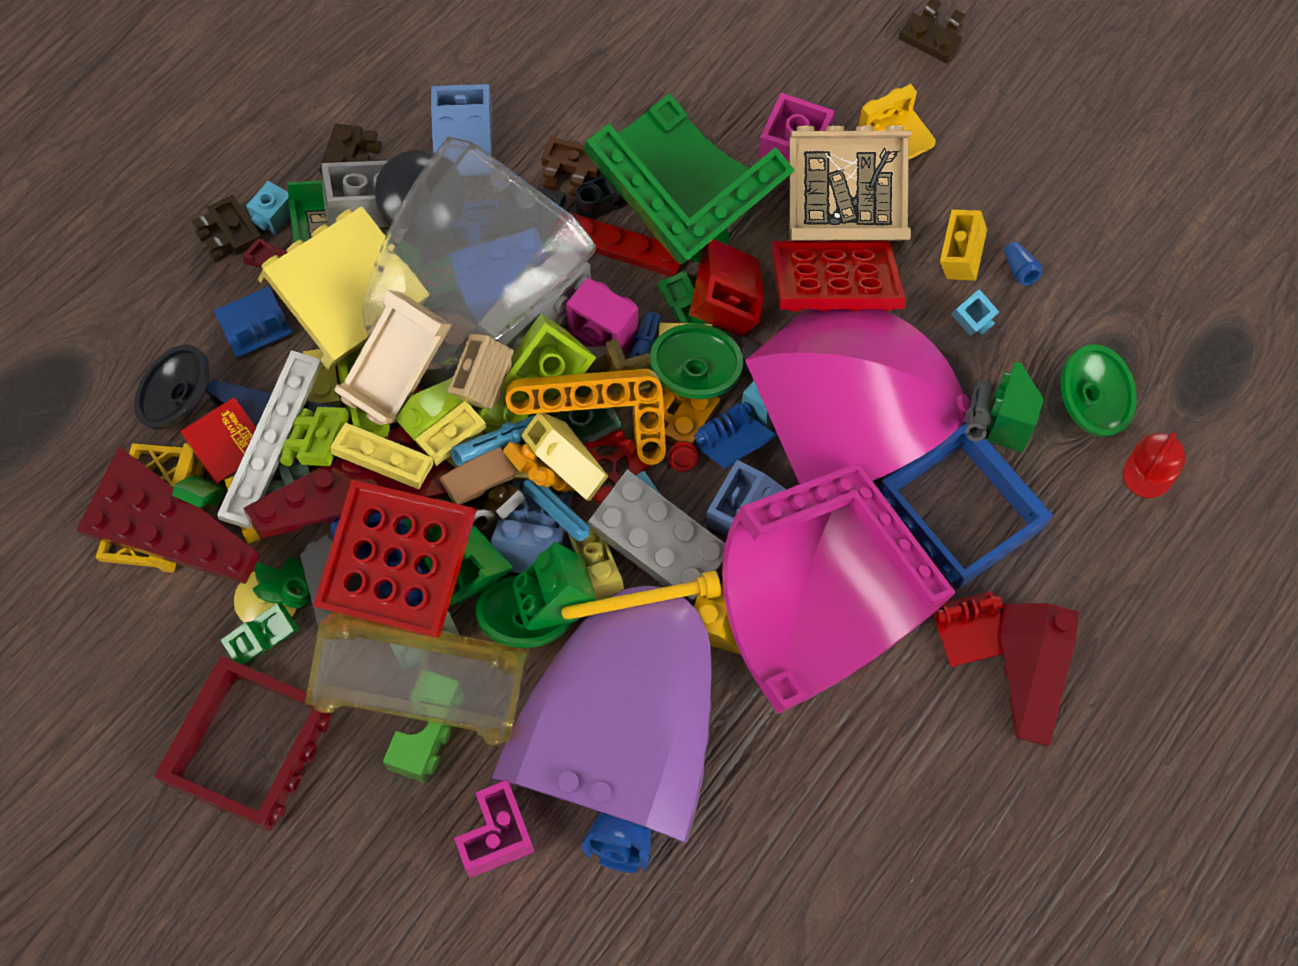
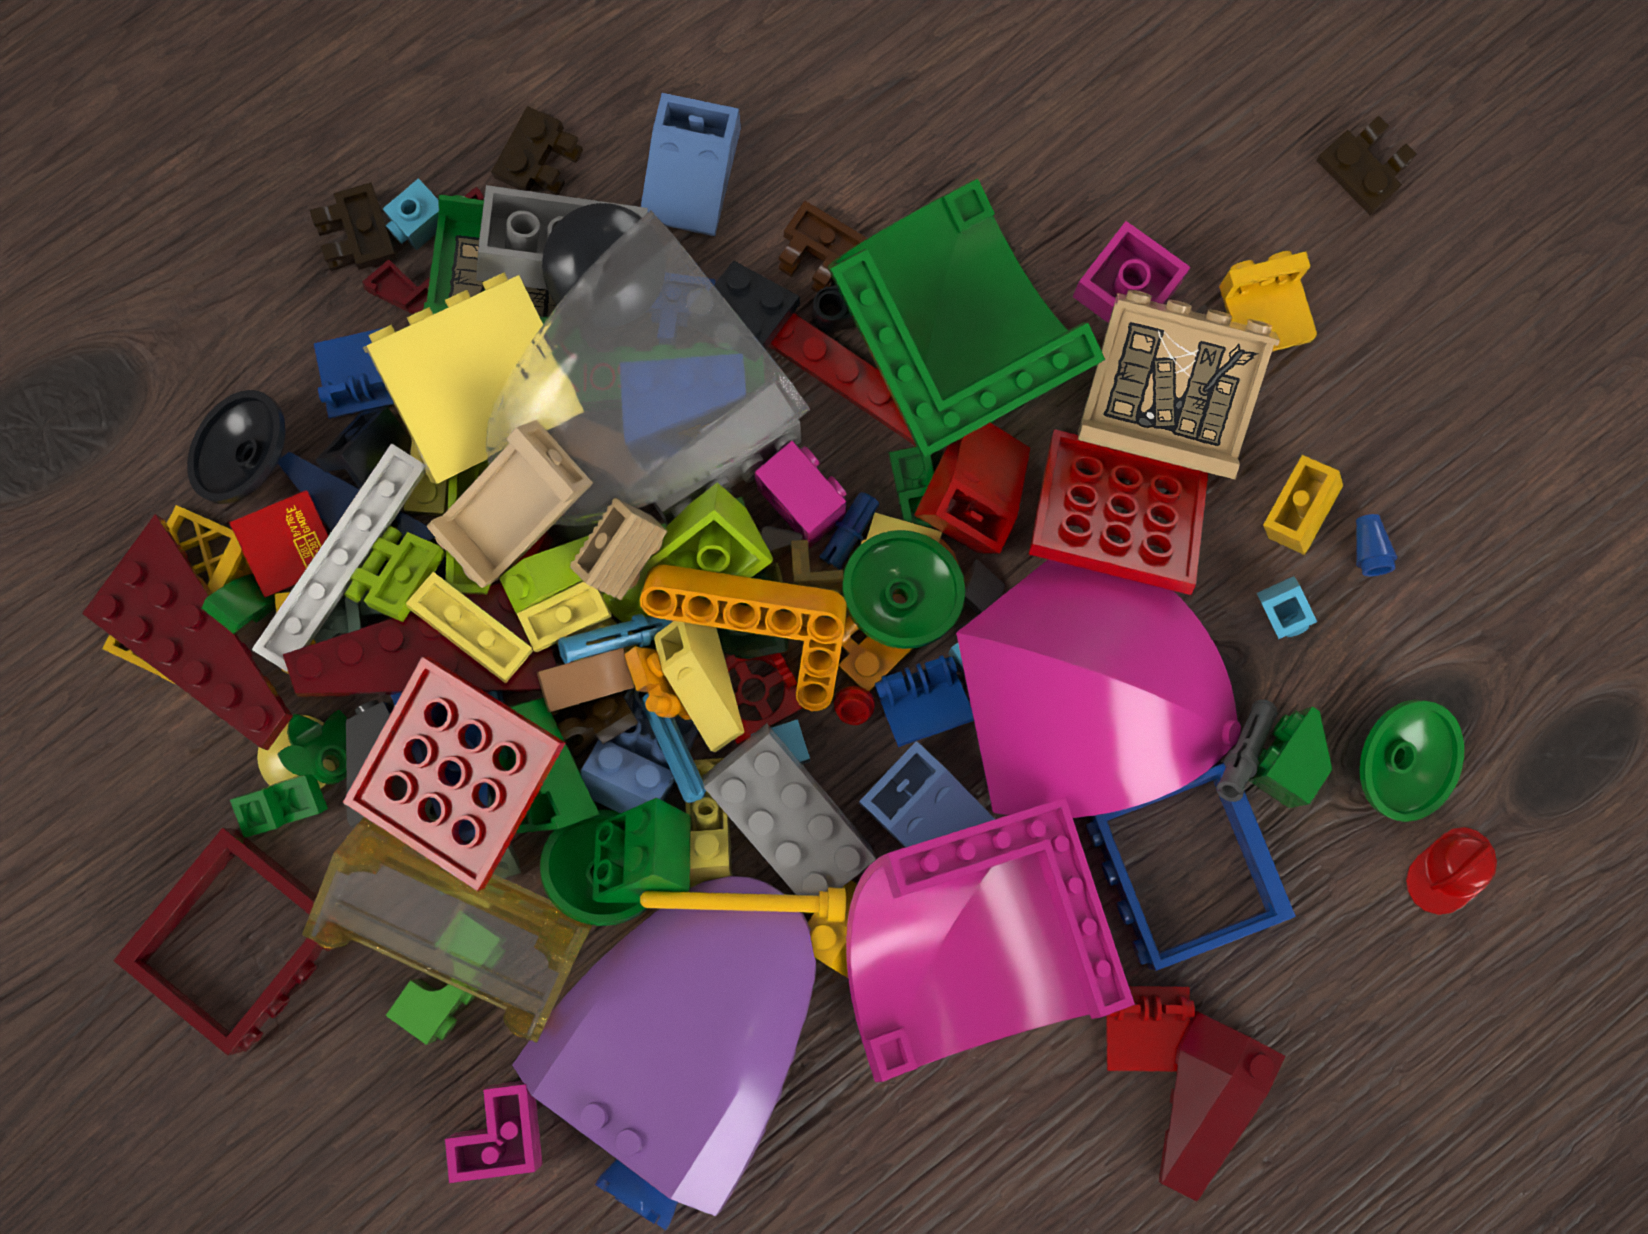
camera: 15 degrees right, 15 degrees up
(266, 363) = (364, 444): none -> black panel

